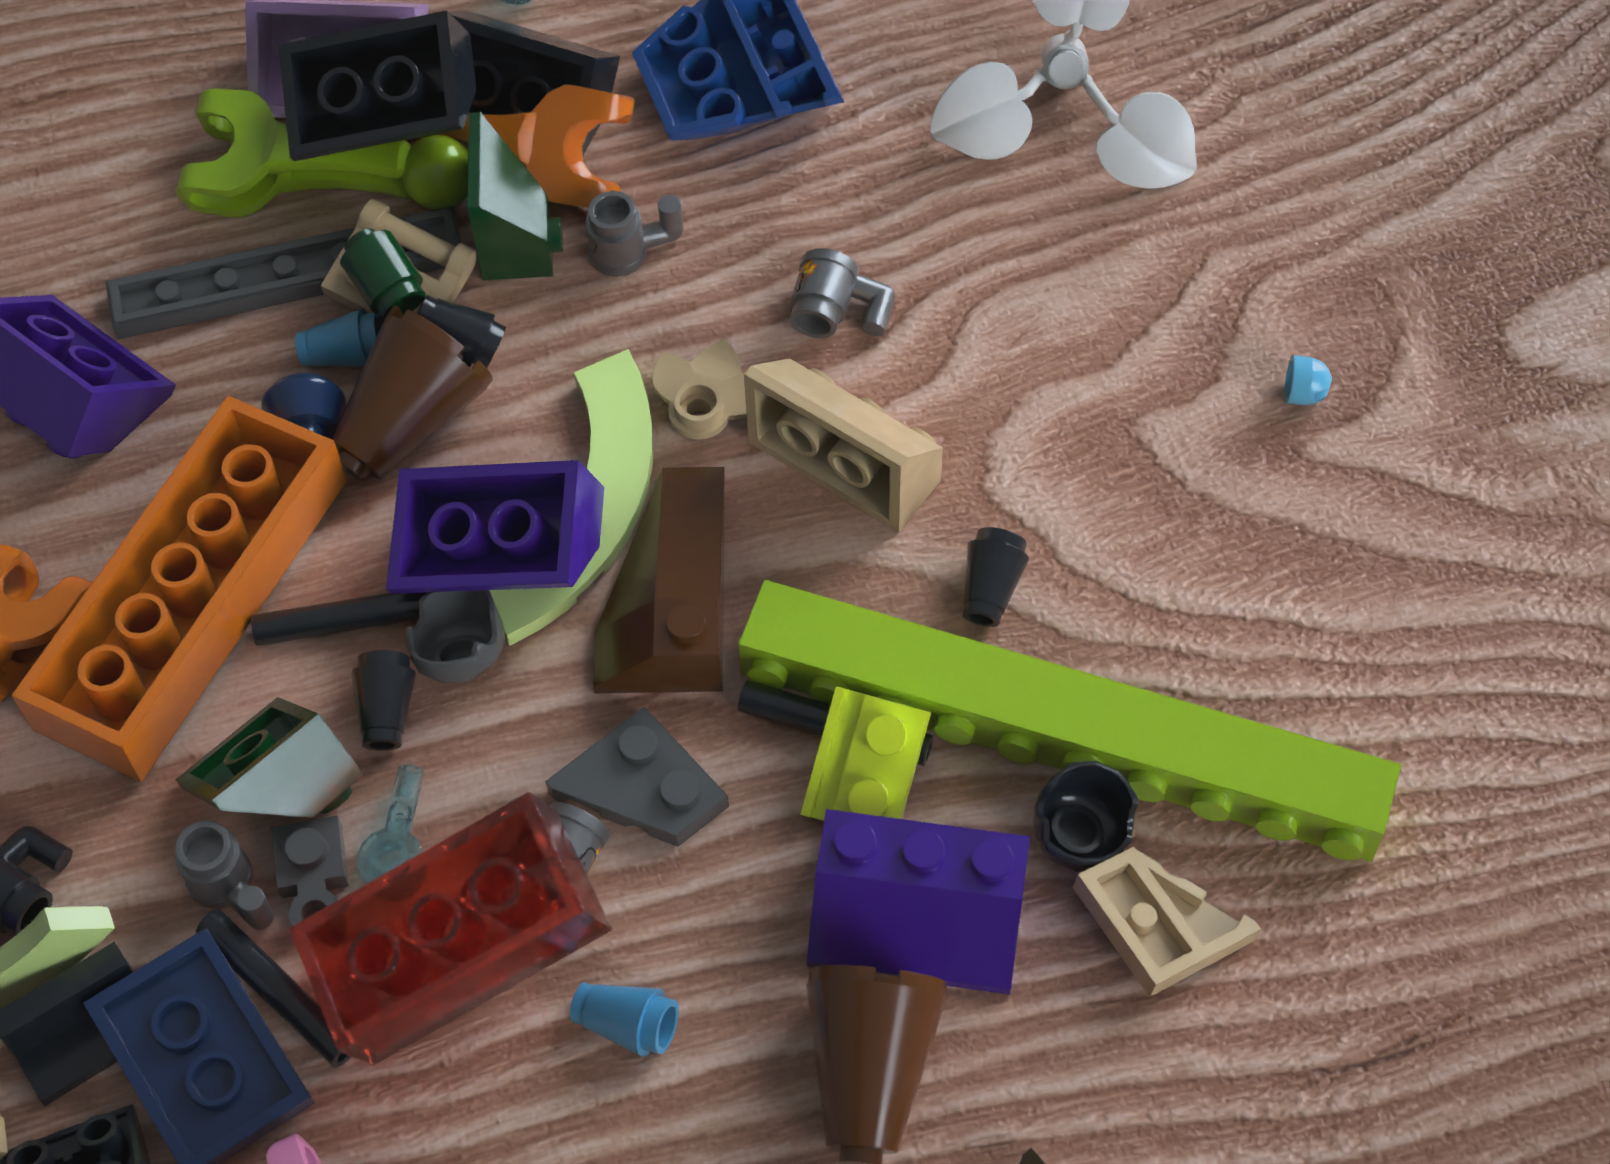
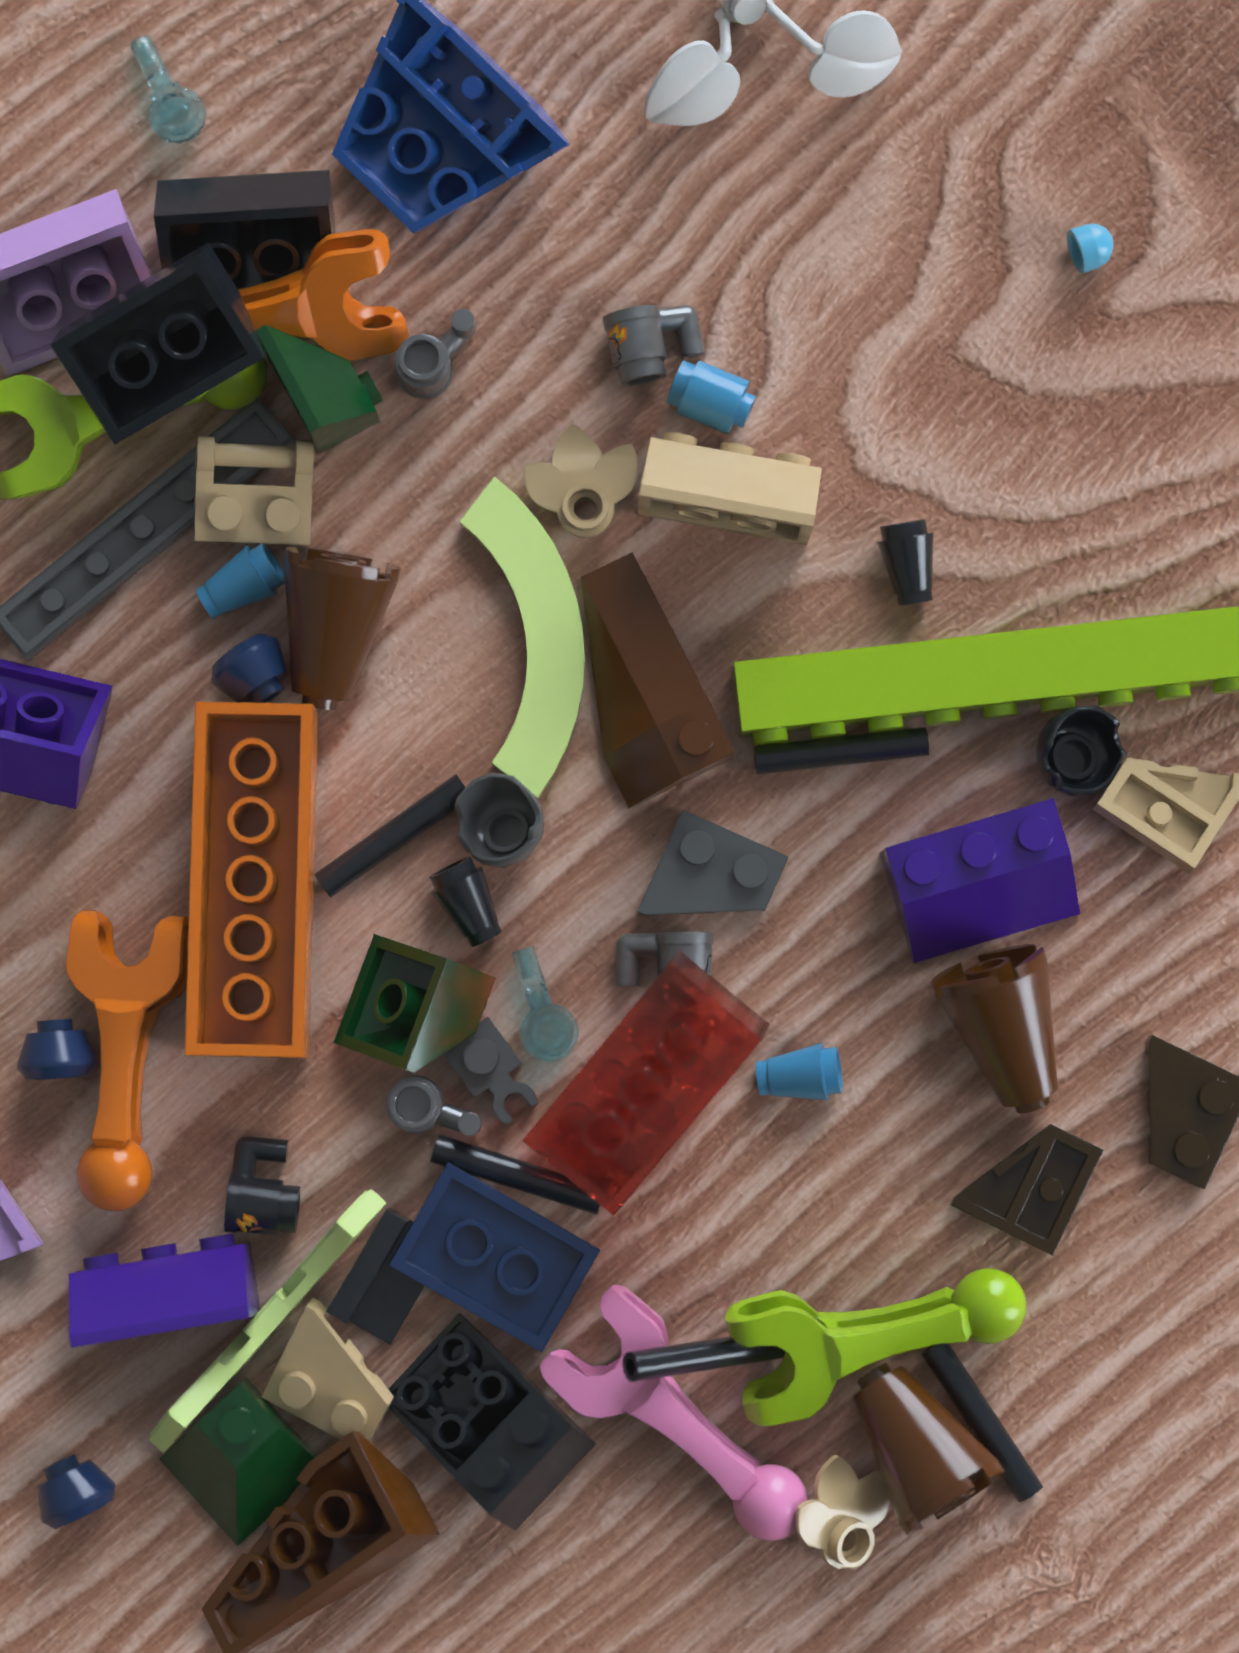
camera: 30 degrees left, 25 degrees up
(382, 272) = (257, 517): dark green brick -> none
(467, 325) = (343, 529): black cone -> none
(494, 527) = (490, 724): dark purple slope -> none
(865, 756) = (888, 782): neon yellow plate -> none
(869, 360) = (711, 396): none -> dark azure brick

